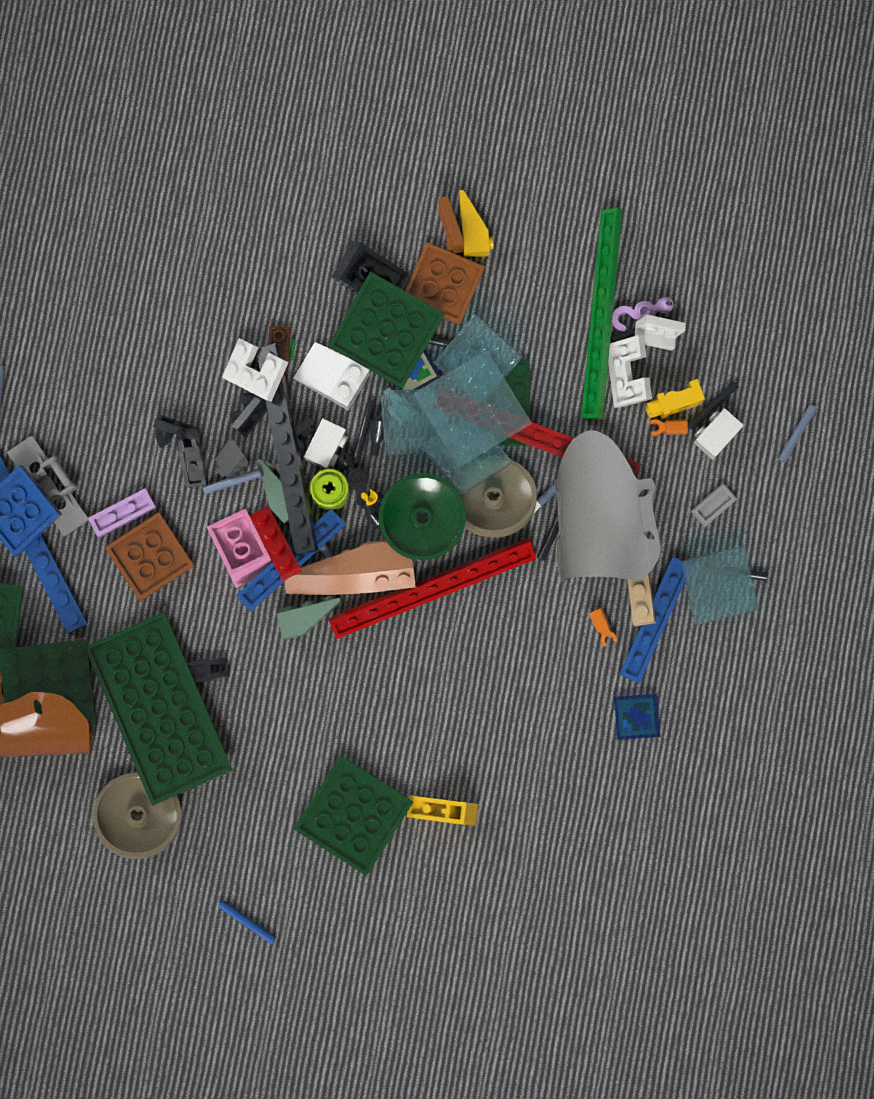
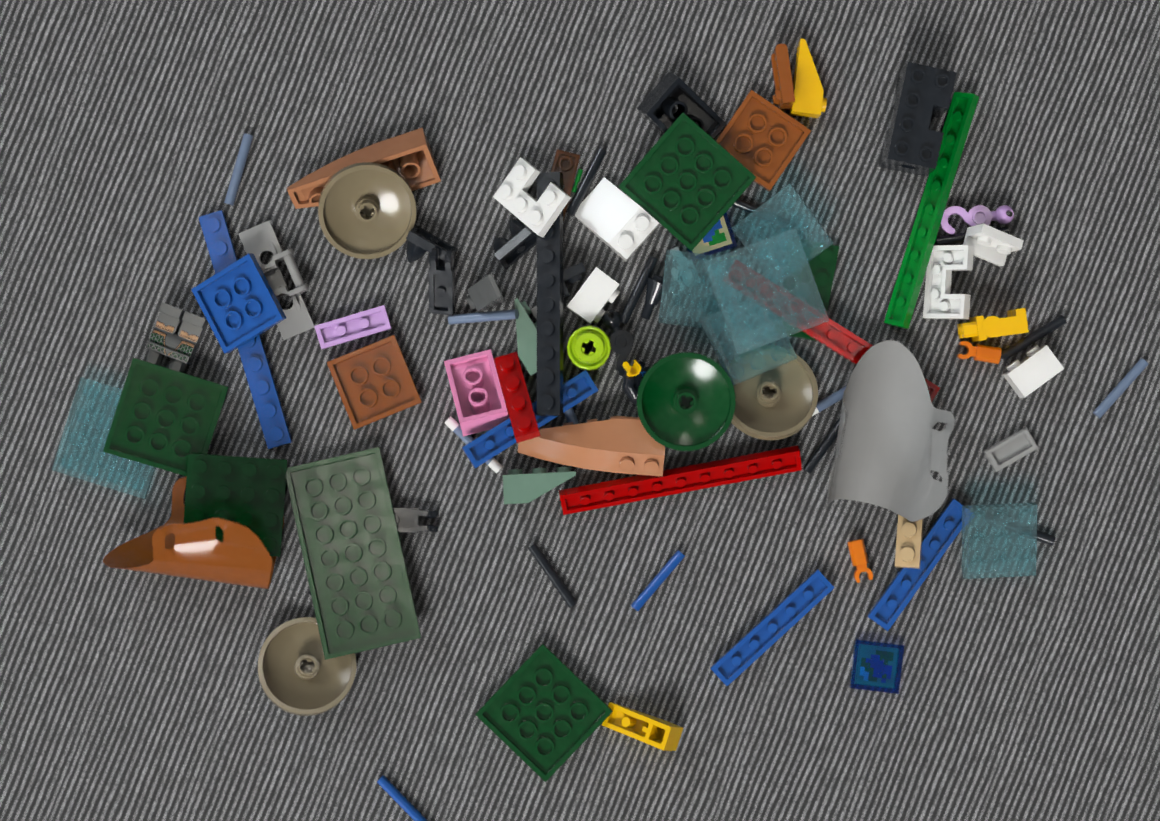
camera: 15 degrees right, 5 degrees up
(114, 409) = (366, 210): none -> dark tan dish
(119, 373) = (406, 154): none -> nougat wedge
(229, 583) = (456, 428): none -> bar
(300, 348) = (586, 181): none -> black bar
(327, 684) = (552, 575): none -> black bar
(430, 680) = (658, 580): none -> blue bar
(538, 701) = (772, 627): none -> blue plate
(571, 217) = (917, 96): none -> black piece

